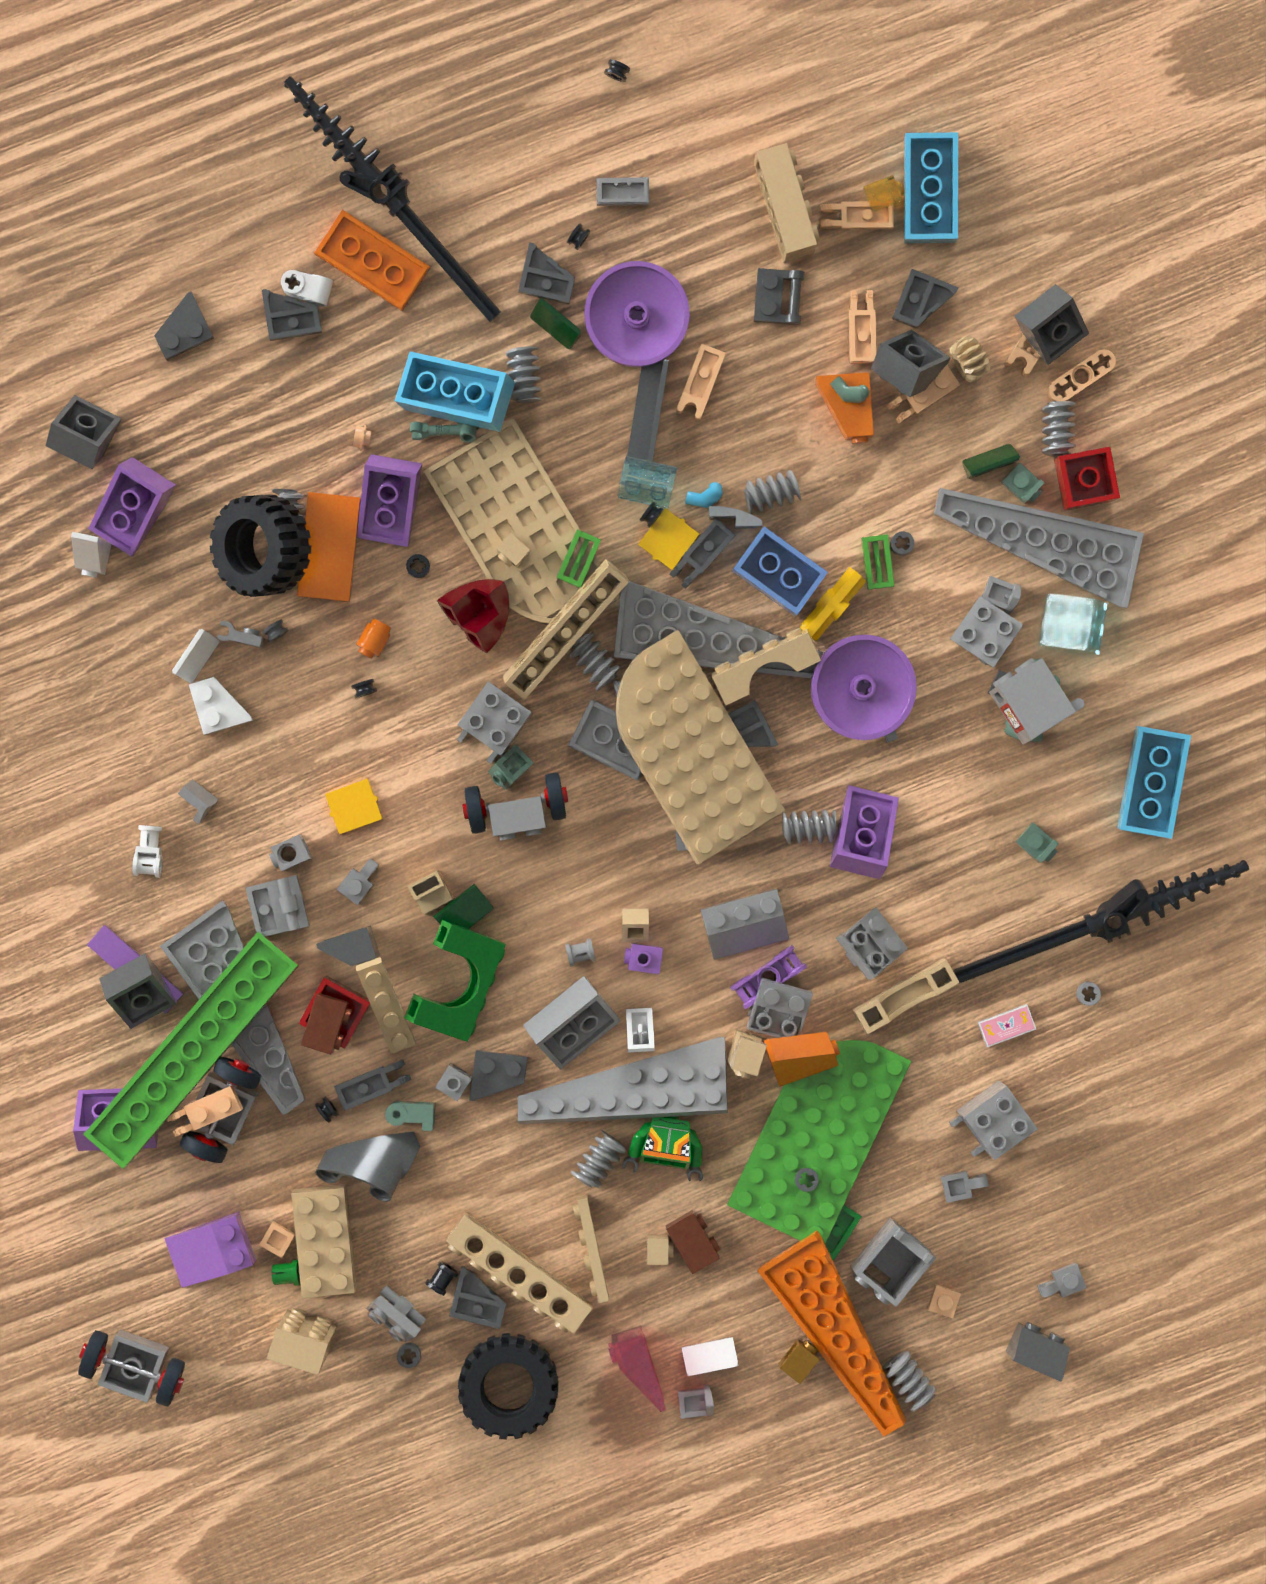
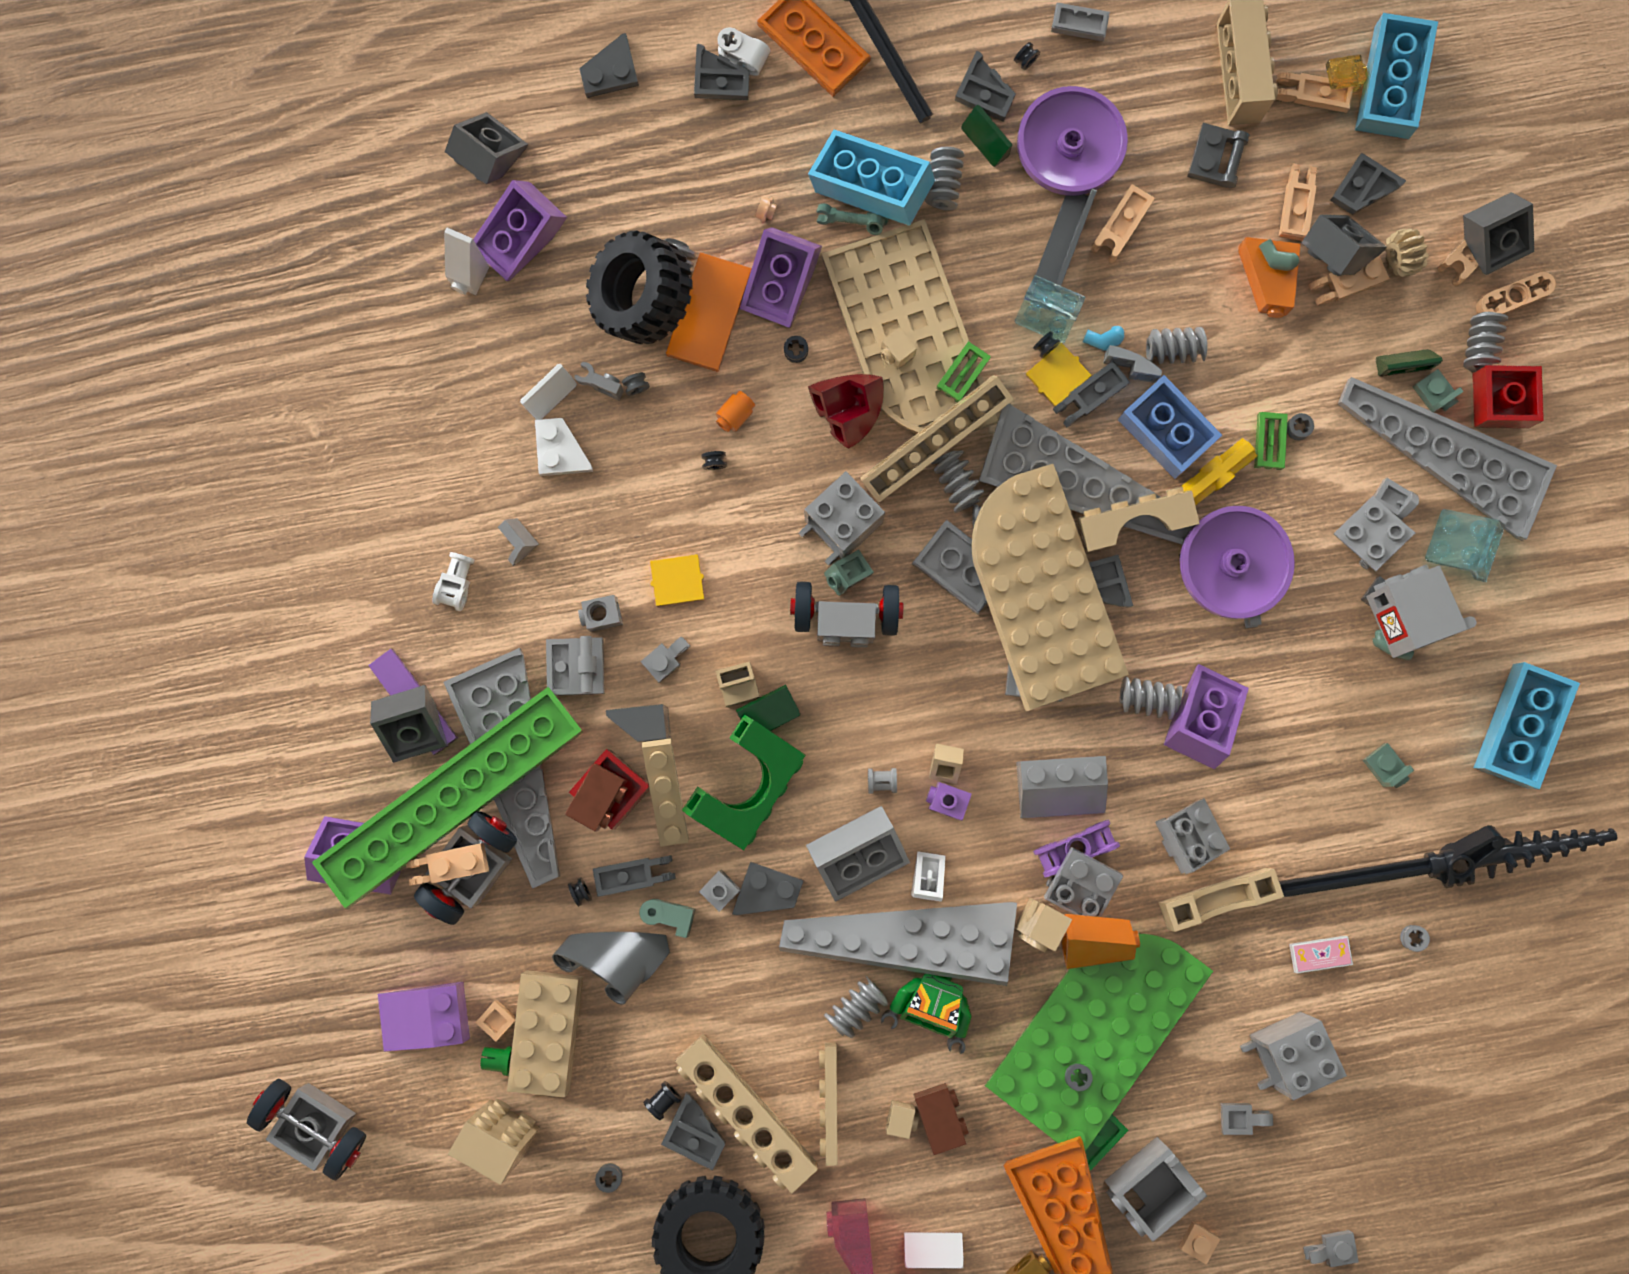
camera: 10 degrees right, 5 degrees down
(395, 1315) = (602, 1131): light grey plate -> none

